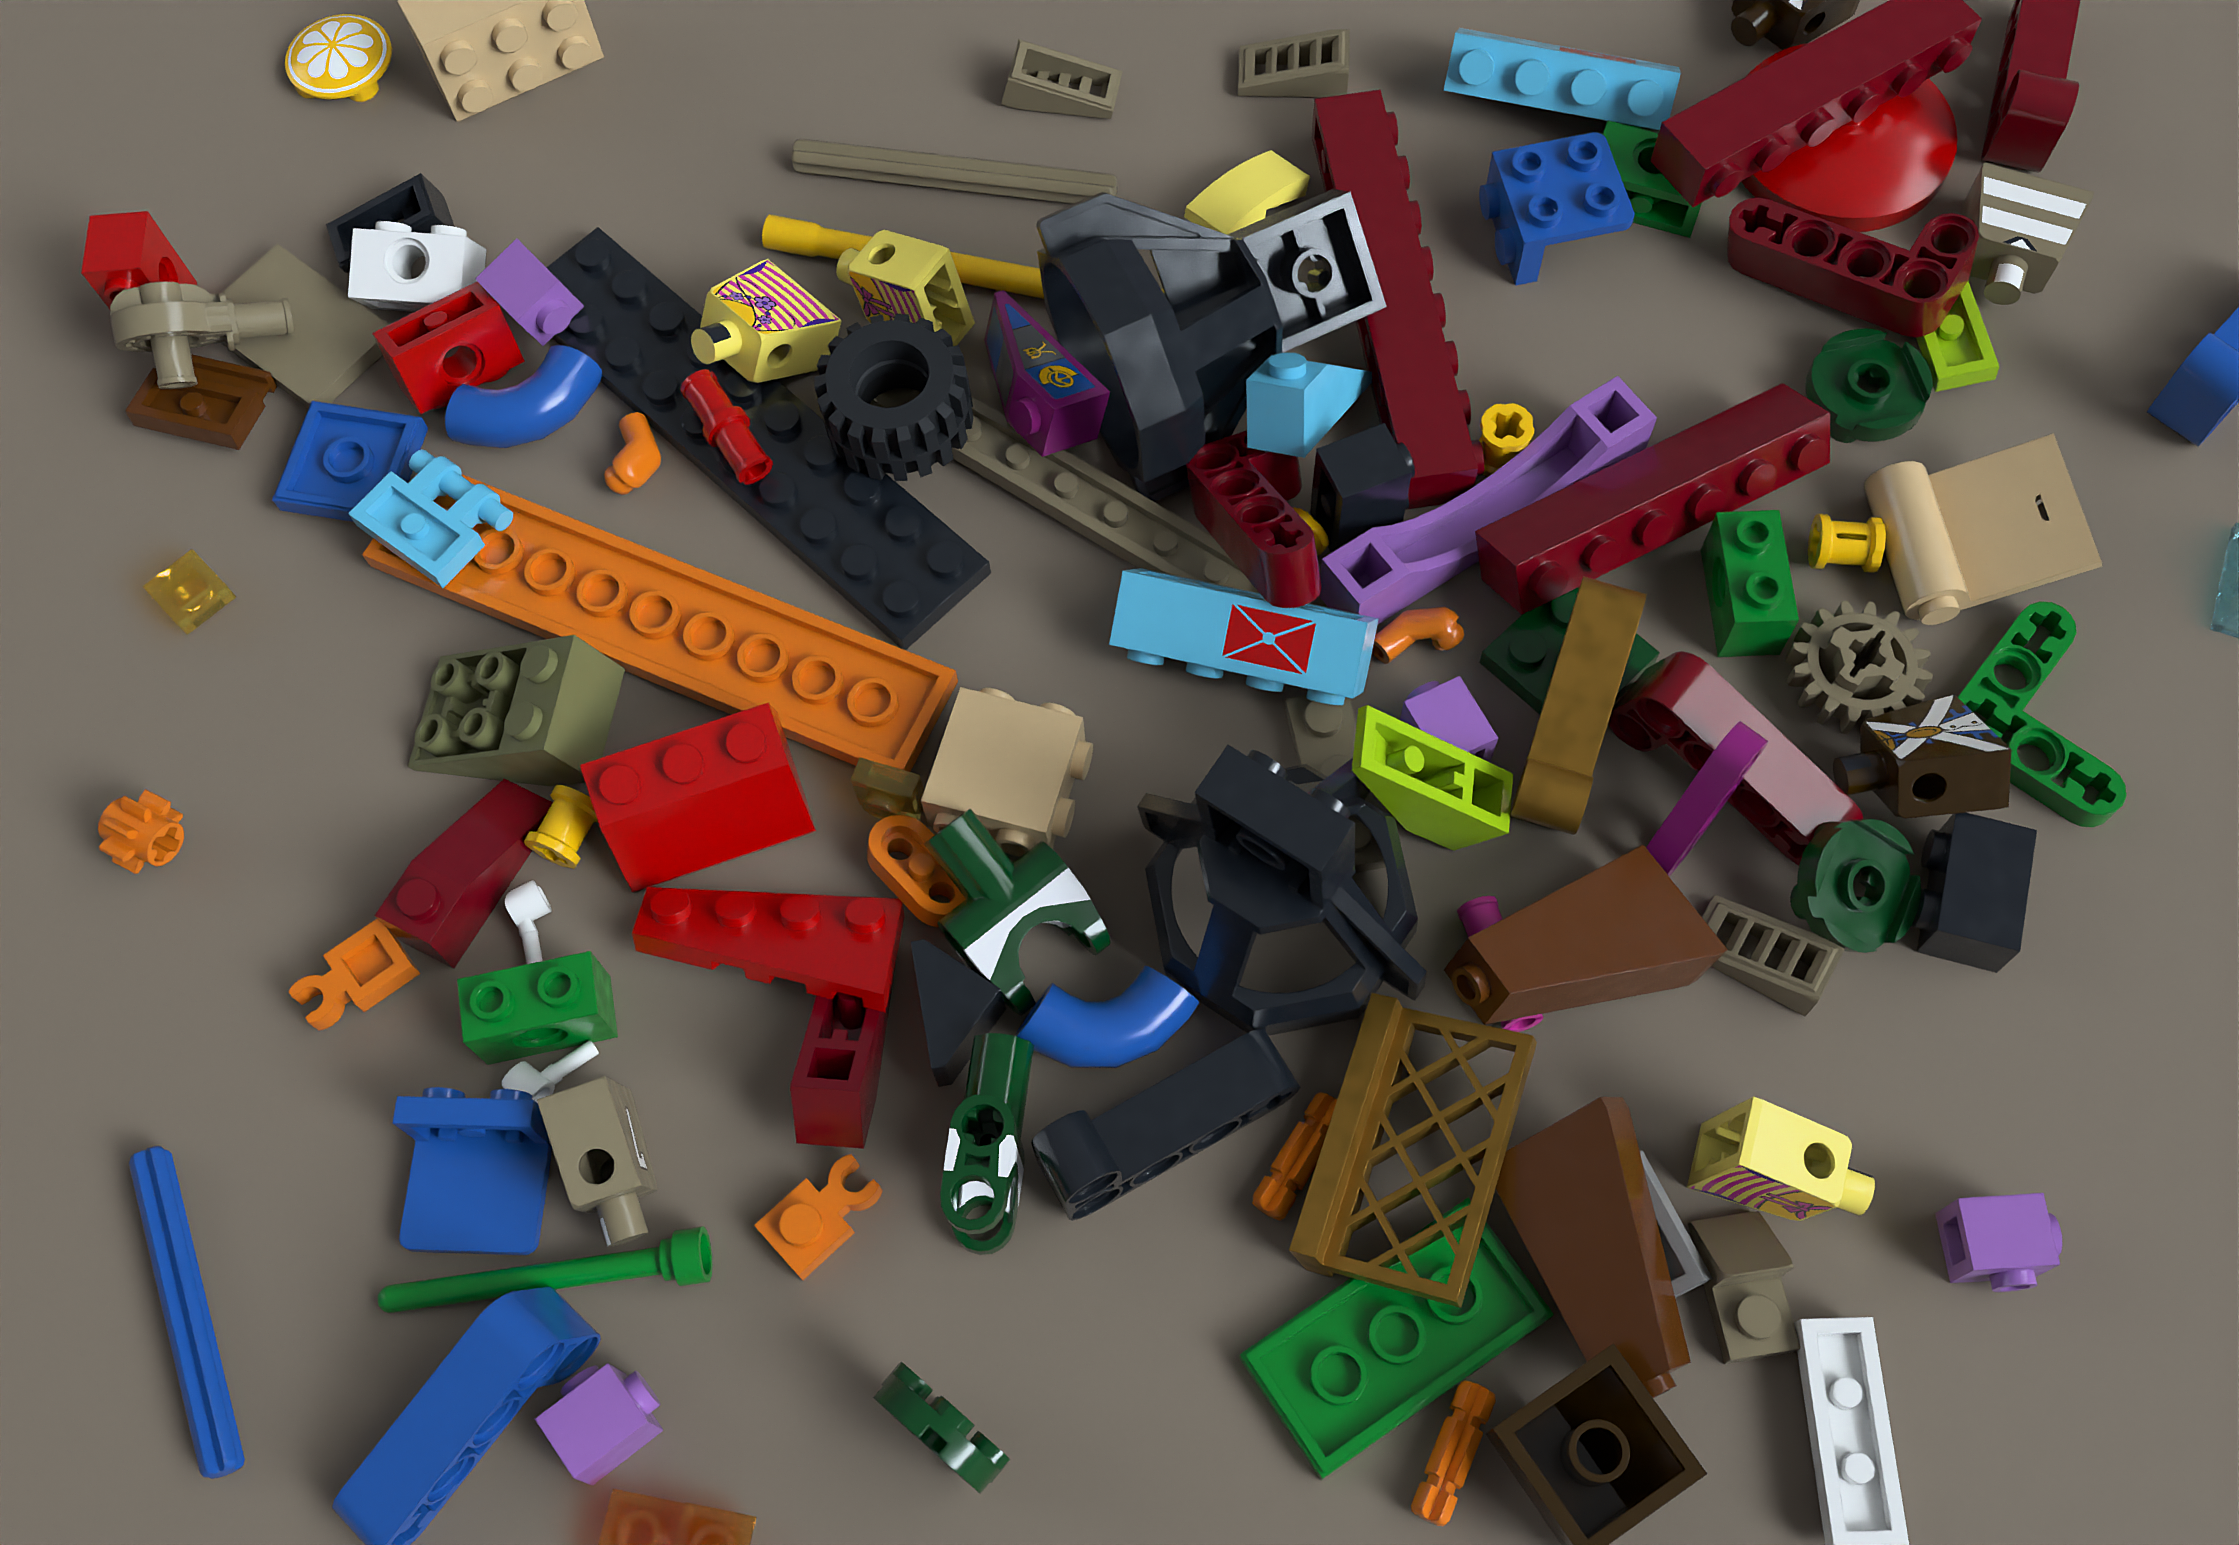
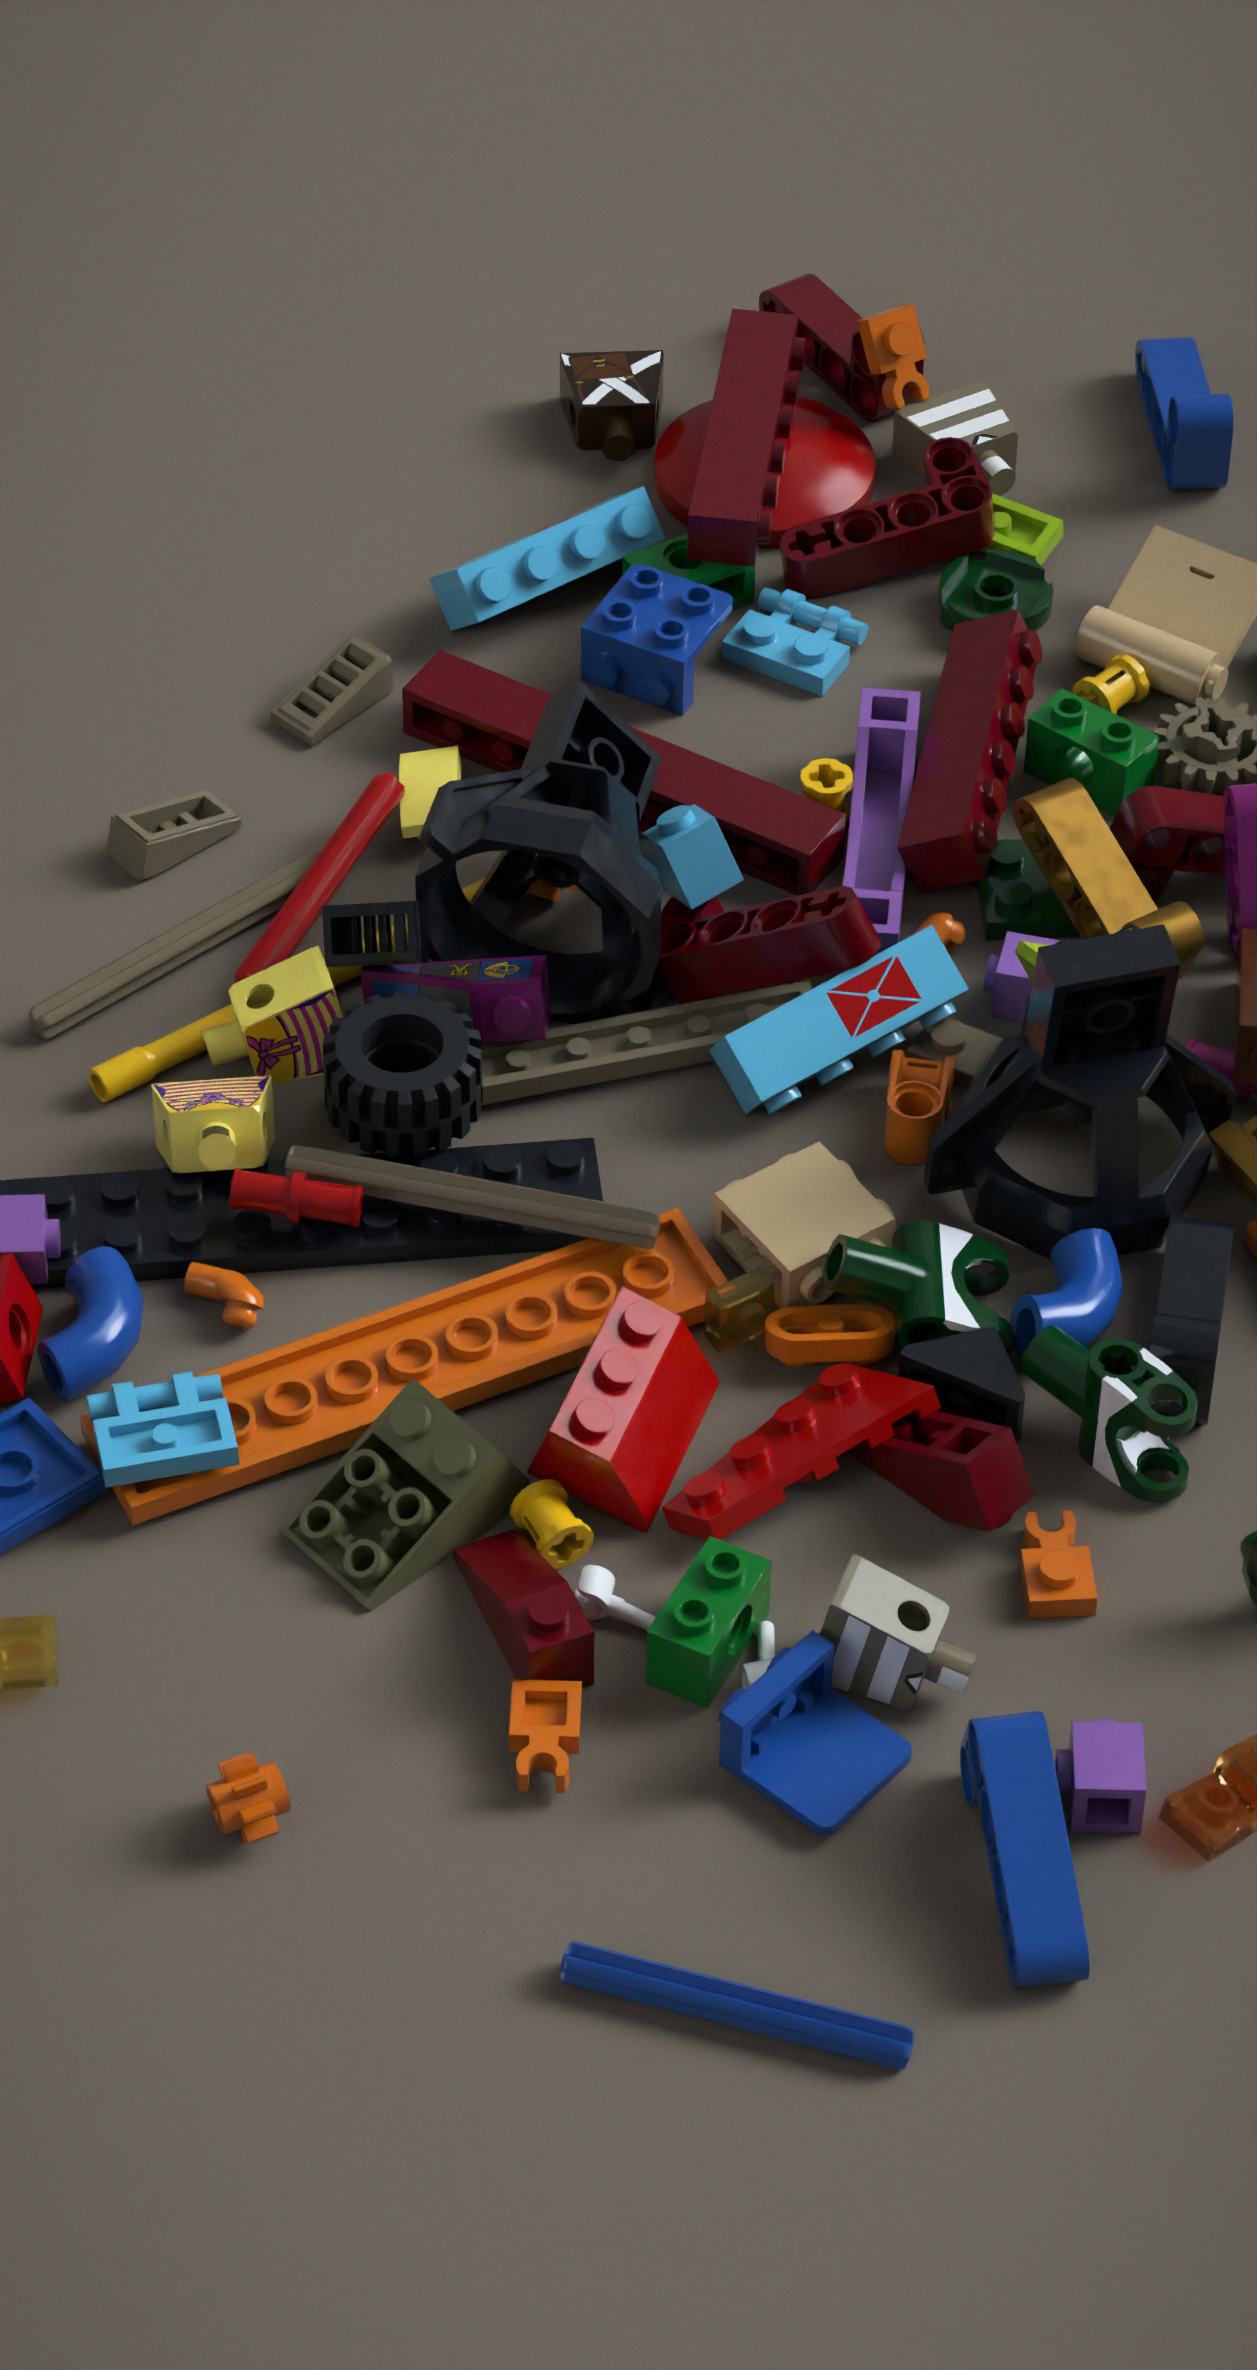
camera: 55 degrees left, 20 degrees down
(679, 1258) = (1012, 1659): green piece -> none
(833, 537) = (479, 1197): none -> dark tan axle
(1014, 270) = (344, 934): none -> black slope
(1138, 187) = (325, 875): none -> red axle
(1241, 725) = (916, 1105): none -> orange piece
(1360, 484) = (793, 858): black brick -> none
(1652, 299) = (790, 653): none -> medium azure plate
(2027, 105) = (891, 347): none -> orange plate

